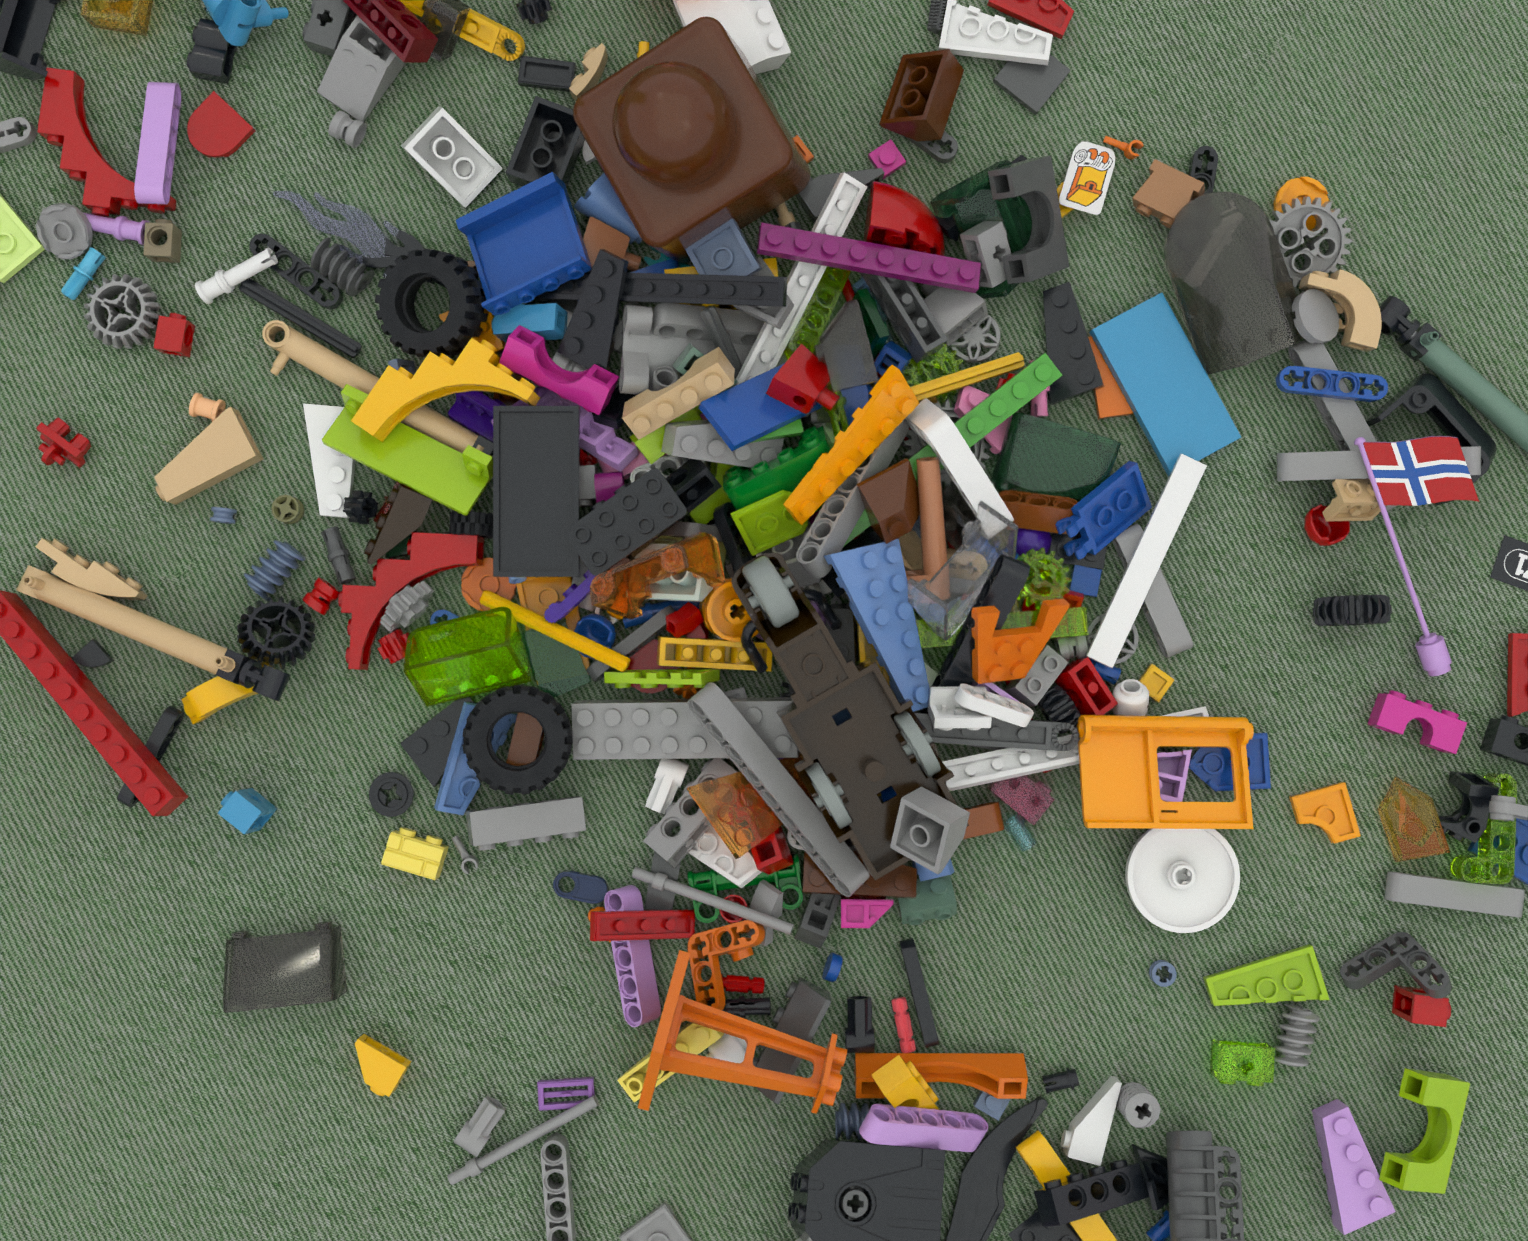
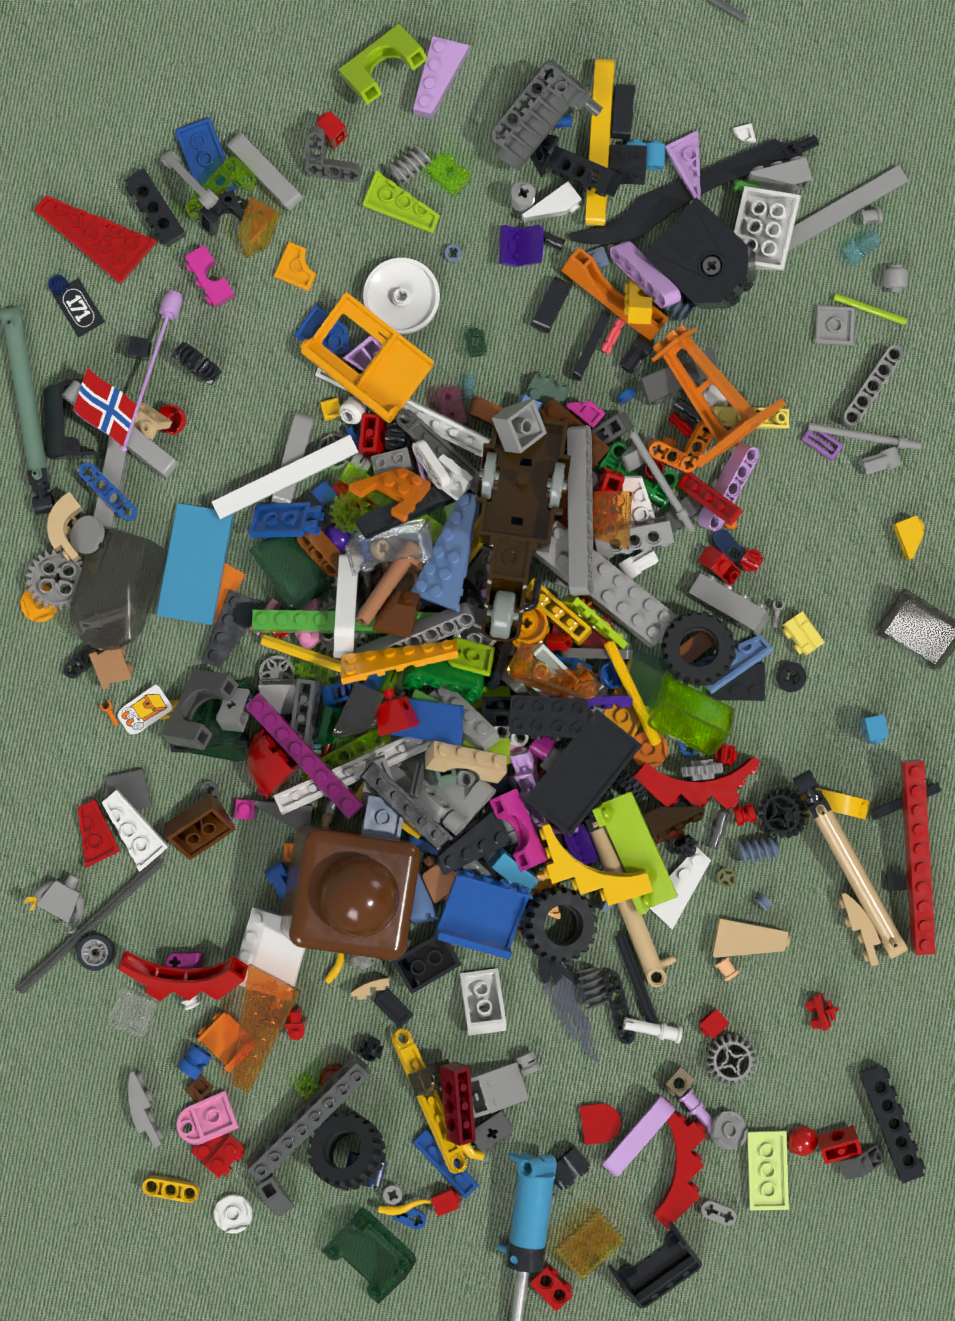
camera: 140 degrees left, 0 degrees up
(83, 273) = (736, 1099): medium azure axle -> none
(539, 892) = (751, 560): none -> red gear
(571, 857) = (719, 565): none -> red slope
(792, 111) = (278, 877): none -> blue piece
(1002, 1004) = (551, 304): none -> black beam
(1045, 881) = (475, 351): none -> clear green brick
(1093, 1045) = (521, 245): none -> dark purple bracket
(1429, 576) = (139, 348): none -> black brick

